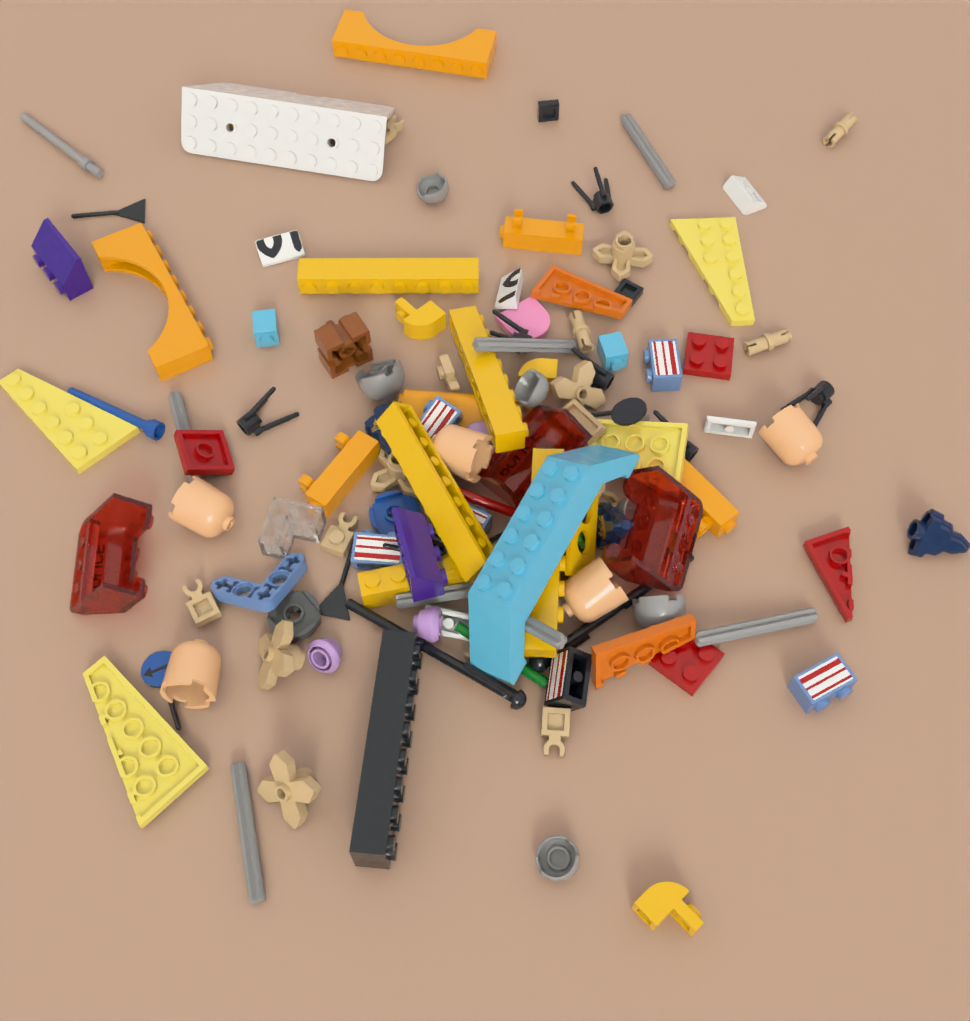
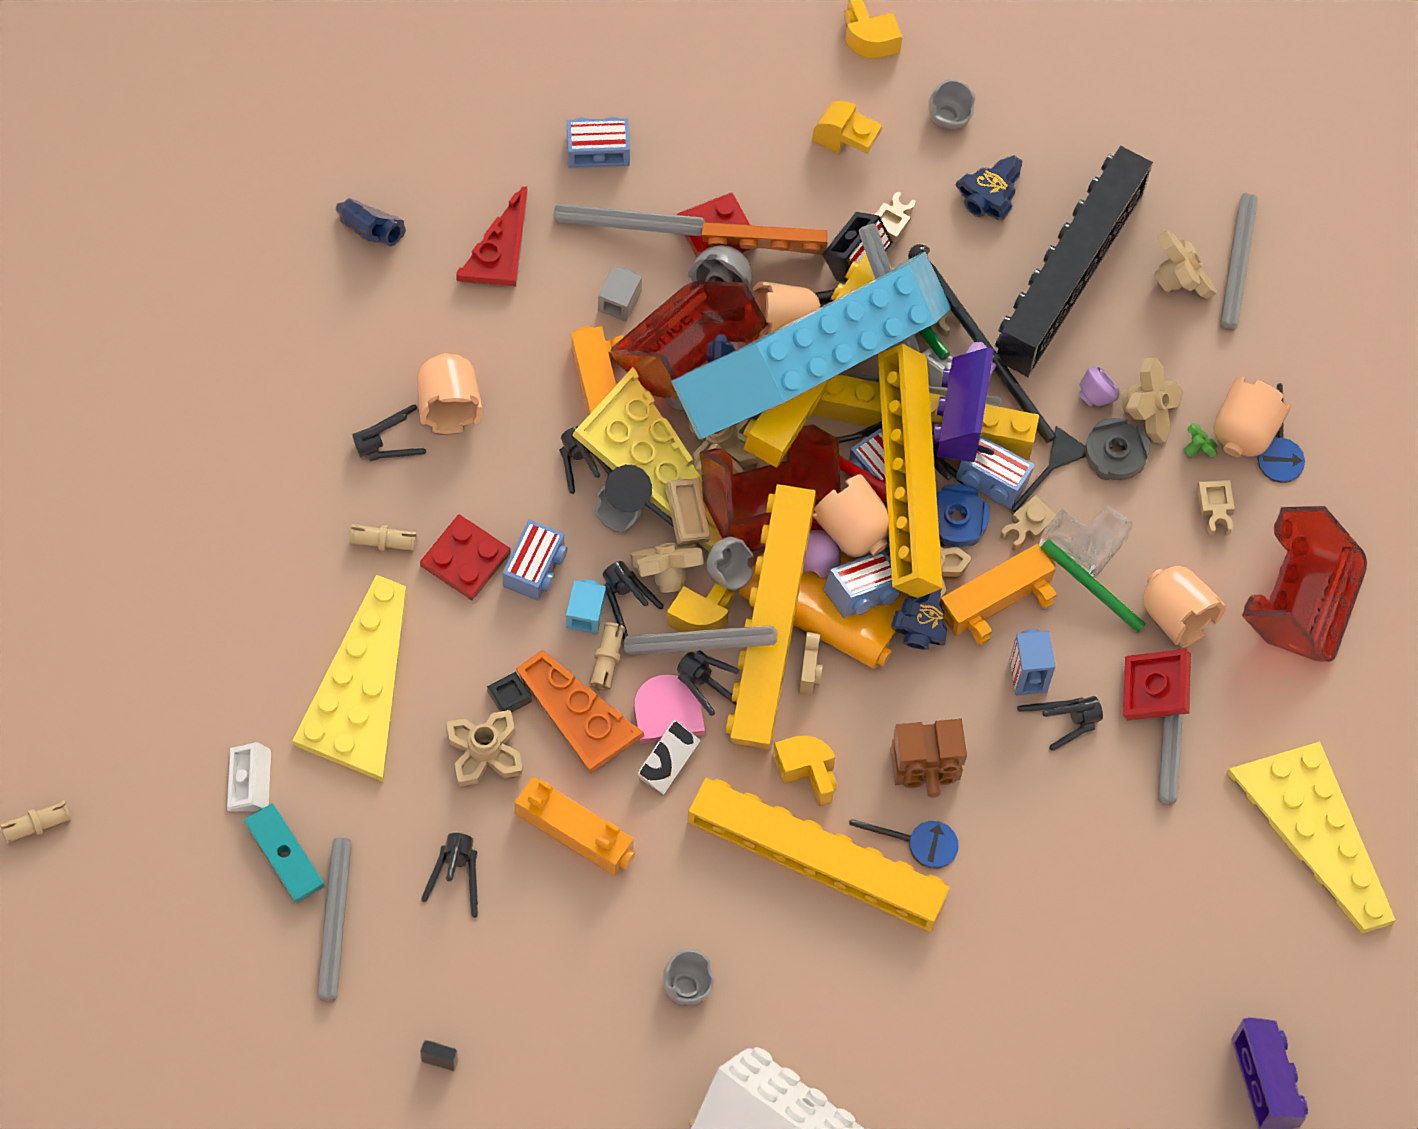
camera: 160 degrees left, 5 degrees up
(145, 747) = (1321, 381): light yellow wing -> none
(152, 428) = (1211, 758): blue piece -> none
(182, 340) = (1157, 1056): light orange arch -> none
(228, 646) = (1200, 442): none -> bright green plant
(262, 596) = (1149, 480): medium blue beam -> none
(266, 328) = (1016, 842): medium azure brick -> none
(266, 499) = (1093, 585): none -> green bar
(280, 248) = (948, 977): slope -> none
(296, 424) = (1032, 662): none -> medium blue brick
(321, 312) = (930, 843): none -> blue piece
(382, 380) = (900, 686): light grey cylinder -> none
(486, 797) = (991, 189): none -> dark blue rock
(636, 784) = (844, 125): none -> yellow brick
(697, 164) = (275, 838): none -> teal tile
(725, 567) = (620, 293): none -> light grey brick
(729, 426) = (503, 453): white slope -> none

